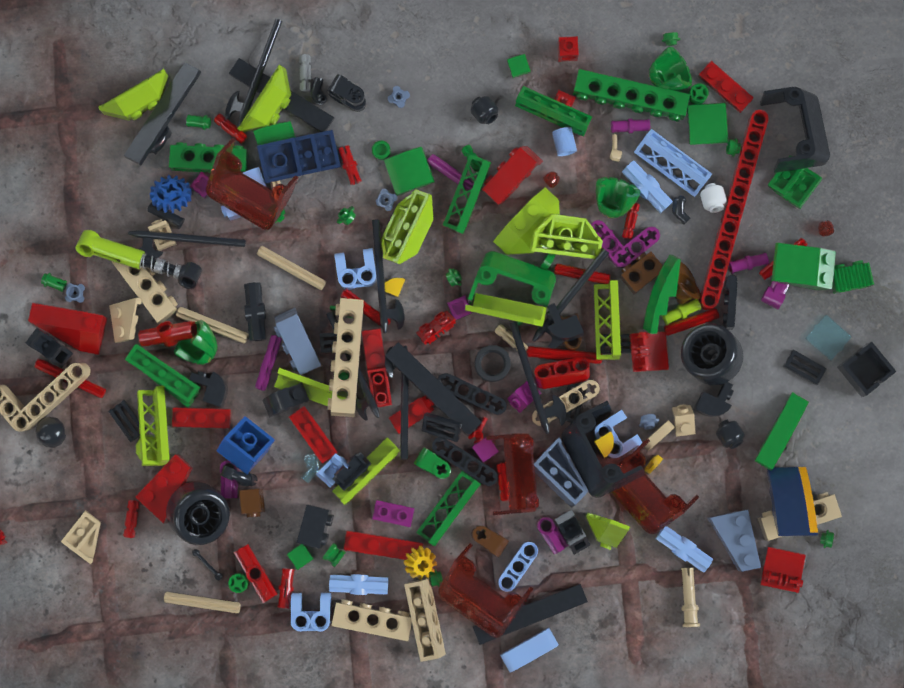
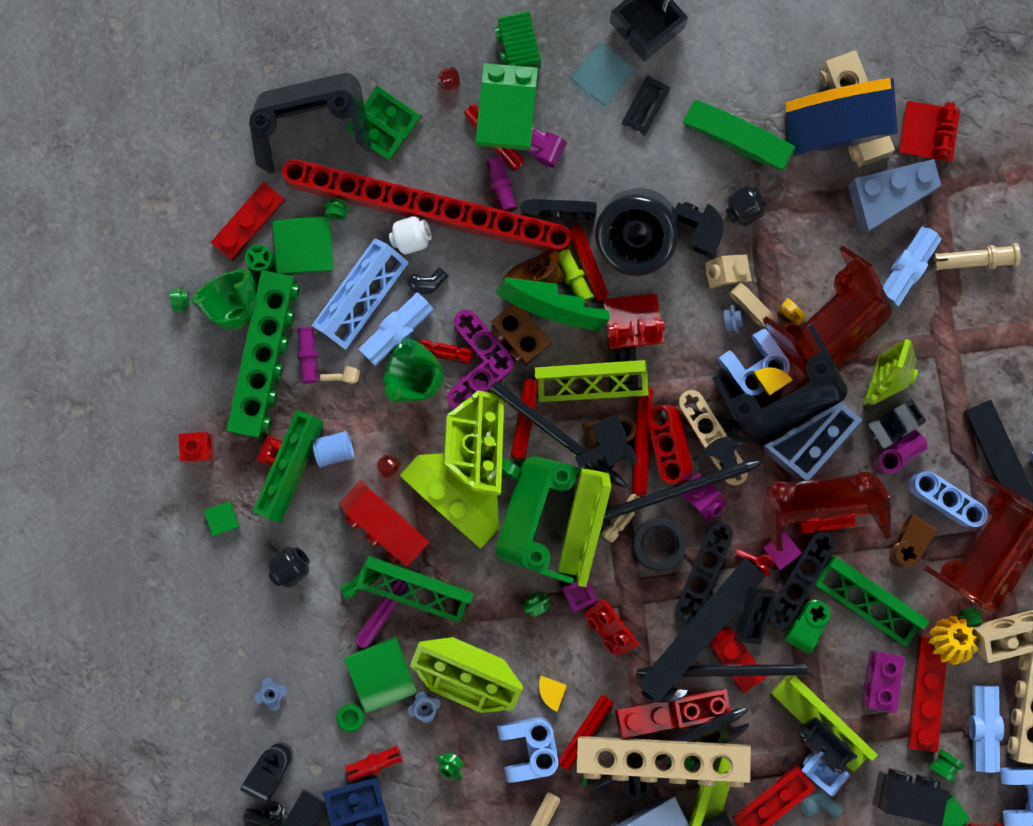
camera: 90 degrees left, 0 degrees up
(397, 313) = (590, 684): black piece -> none
(827, 539) = (884, 70): green plate -> none

